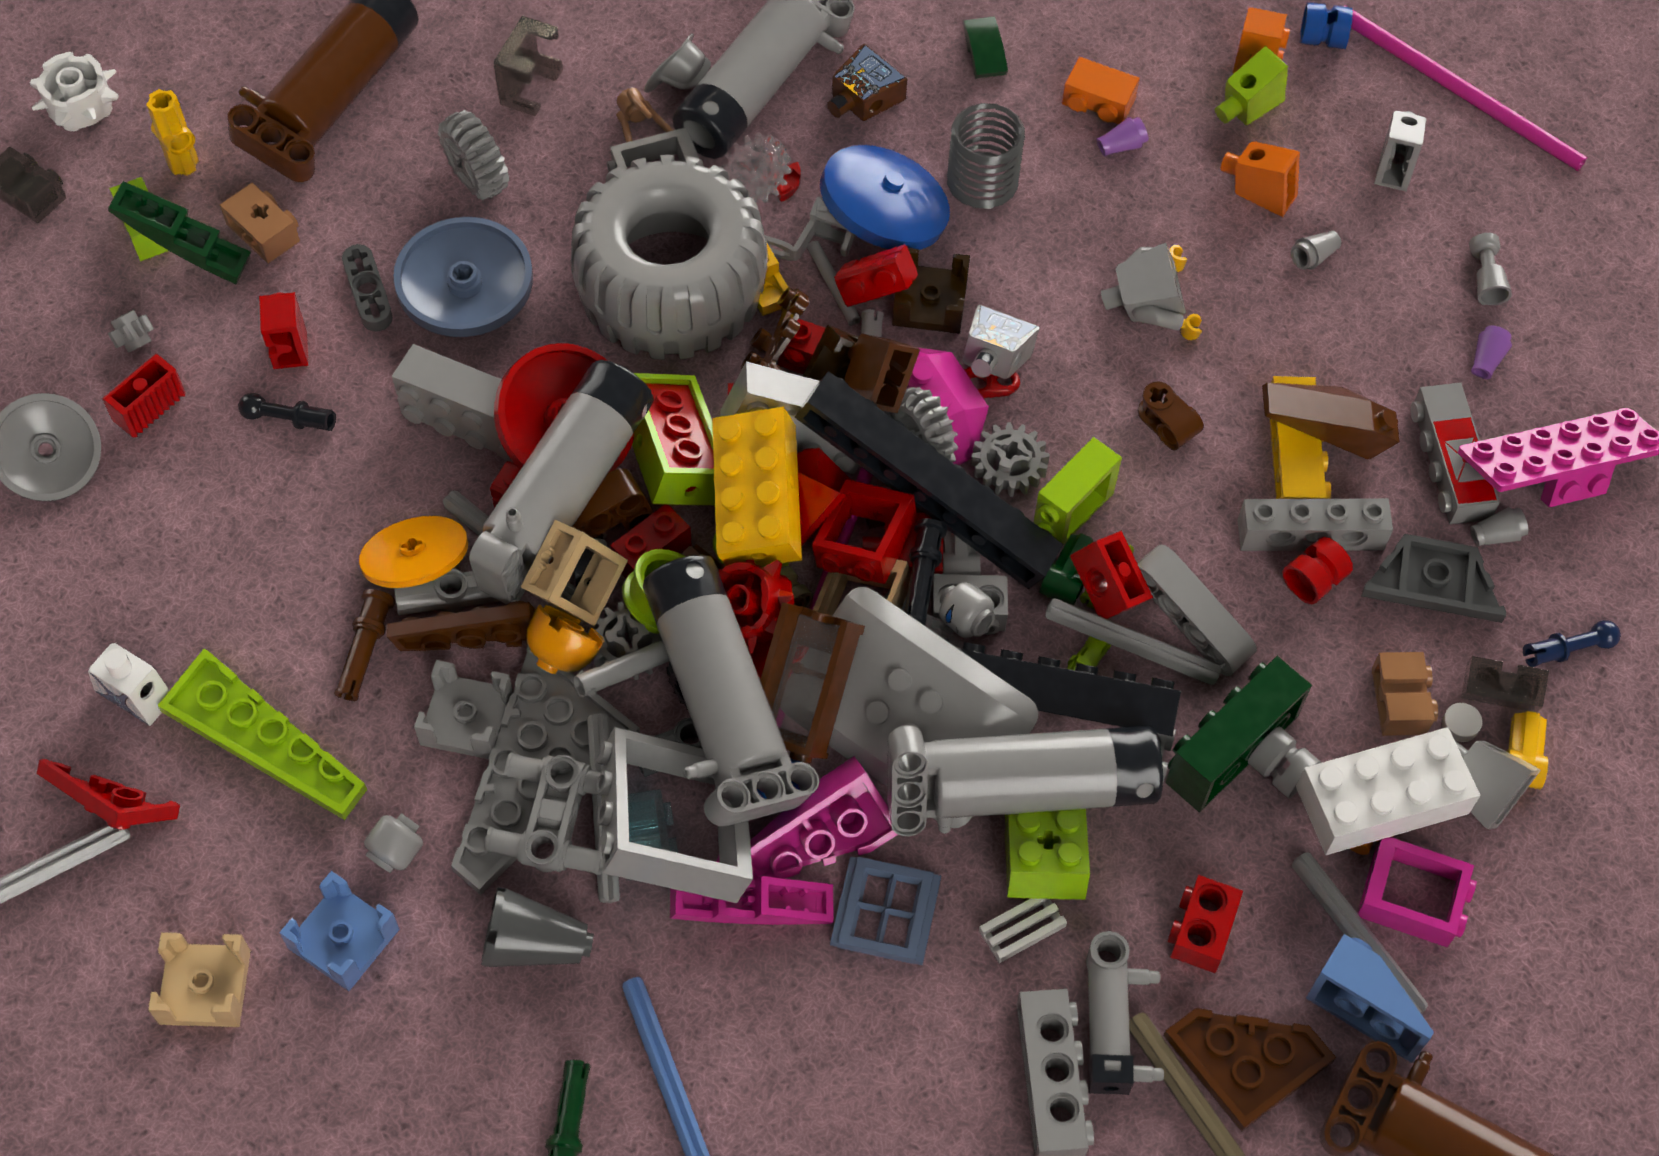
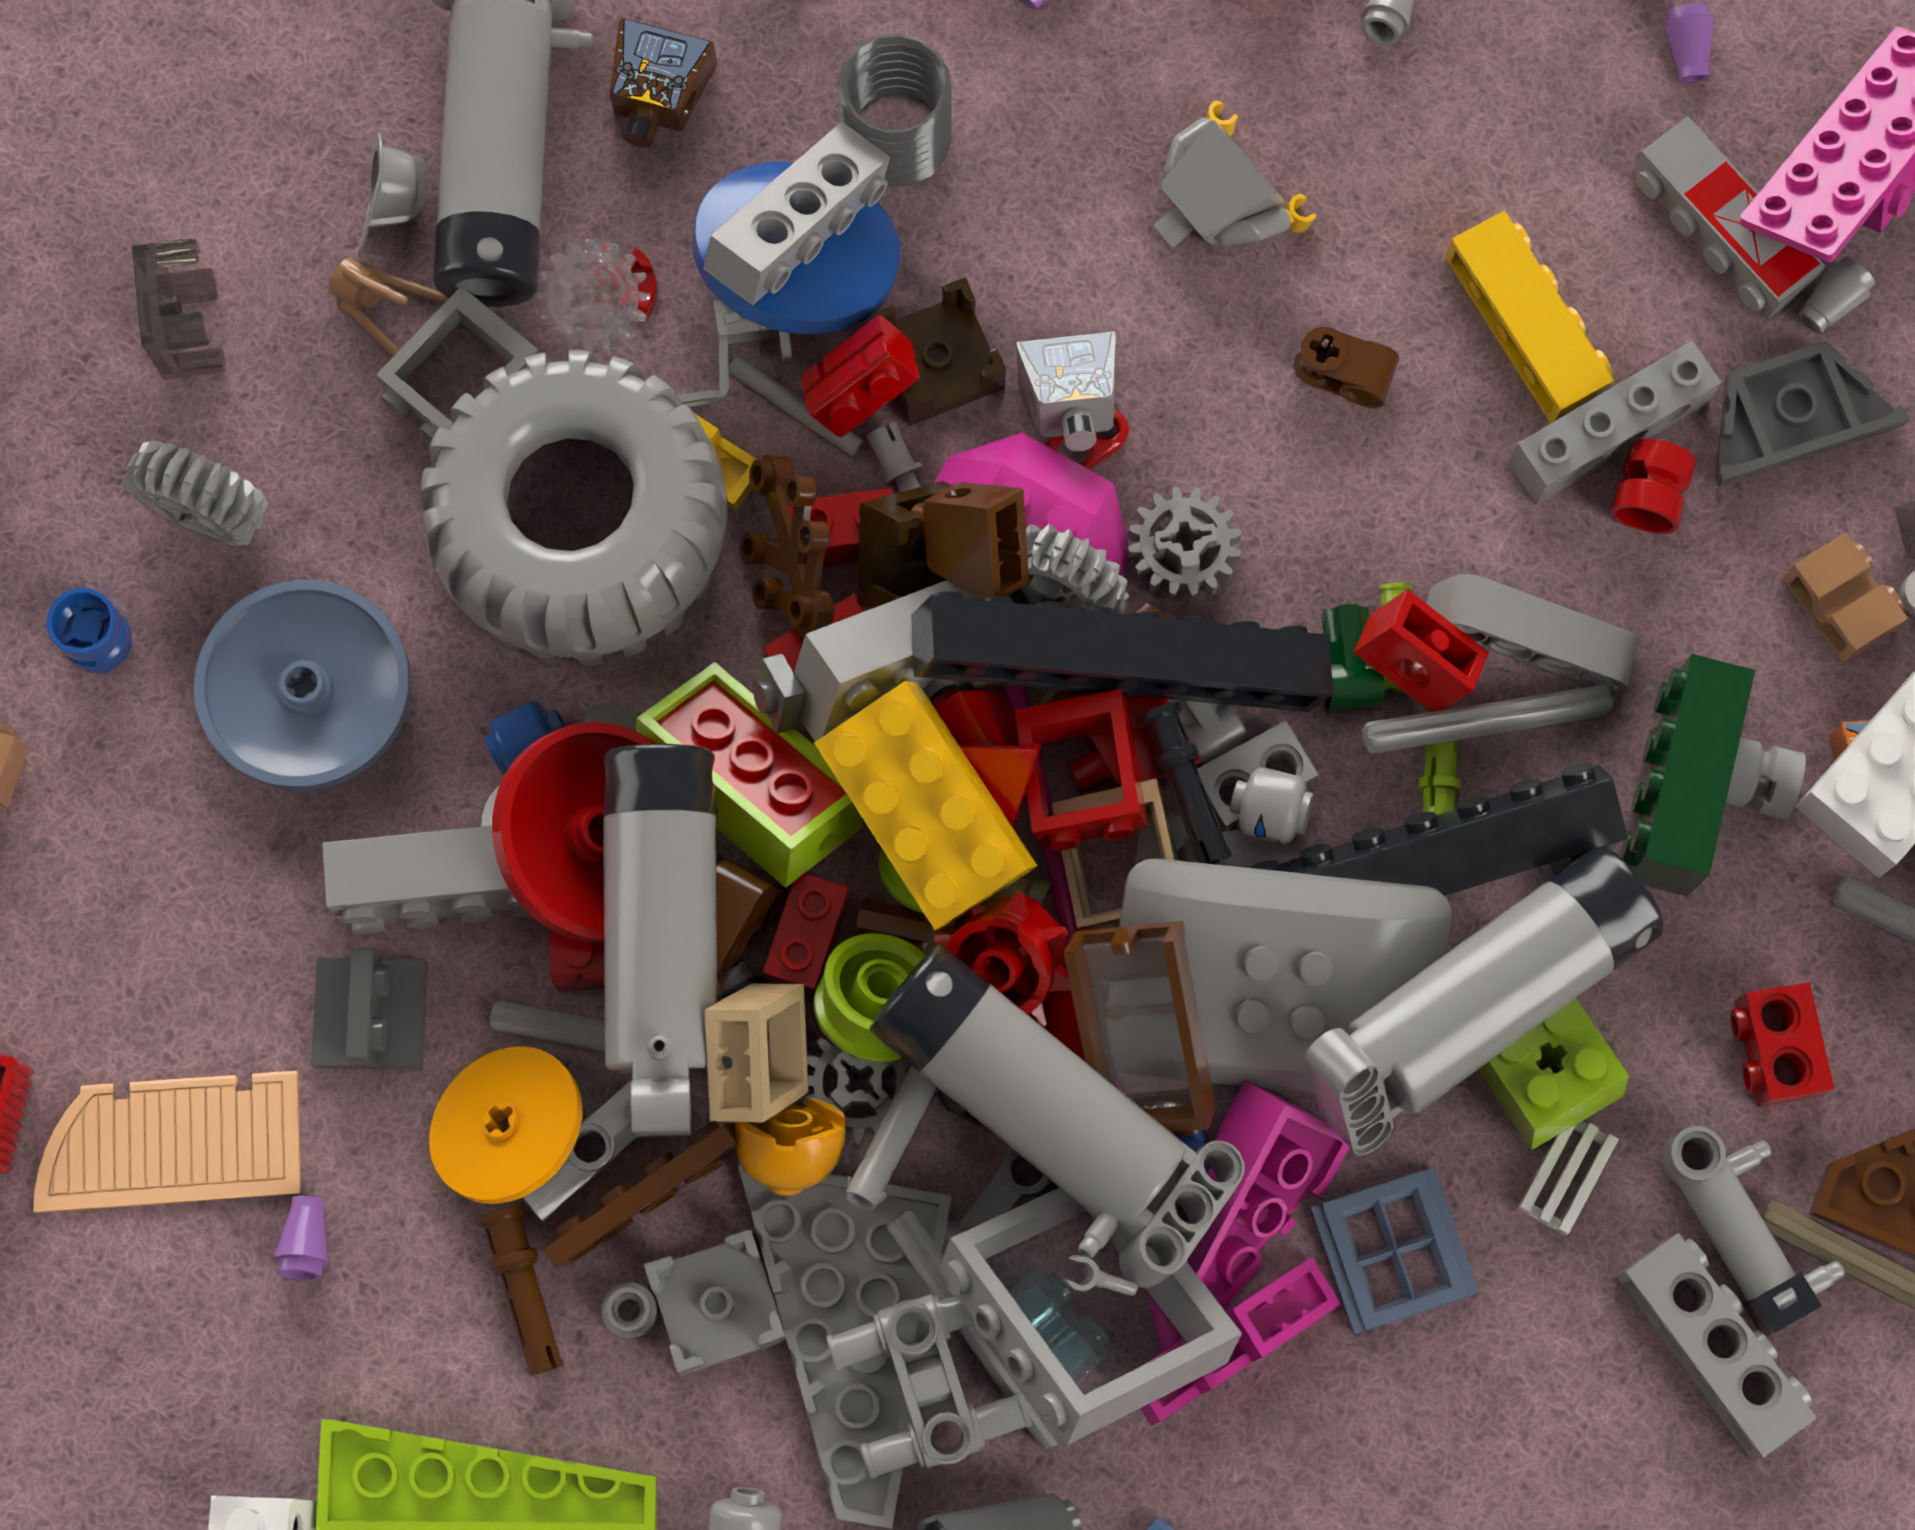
camera: 30 degrees left, 15 degrees up
(231, 472) = (174, 1144): none -> light nougat piece
(261, 555) = (303, 1241): none -> medium lavender cone
(283, 330) = (115, 908): red brick -> none
(302, 415) = (139, 1032): black pin -> none
(370, 275) = (173, 748): dark grey beam -> none
(371, 194) = (89, 630): none -> blue wheel
(383, 459) = (369, 1012): none -> dark grey bracket
(412, 681) = (613, 1302): none -> light grey plate
(685, 795) = (1100, 1279): none -> light grey hand
(715, 399) = (778, 693): none -> dark grey plate
(890, 166) = (797, 214): none -> light grey brick
(1077, 490) = (1304, 551): lime window -> none
(1333, 416) = (1560, 253): reddish brown wedge -> none

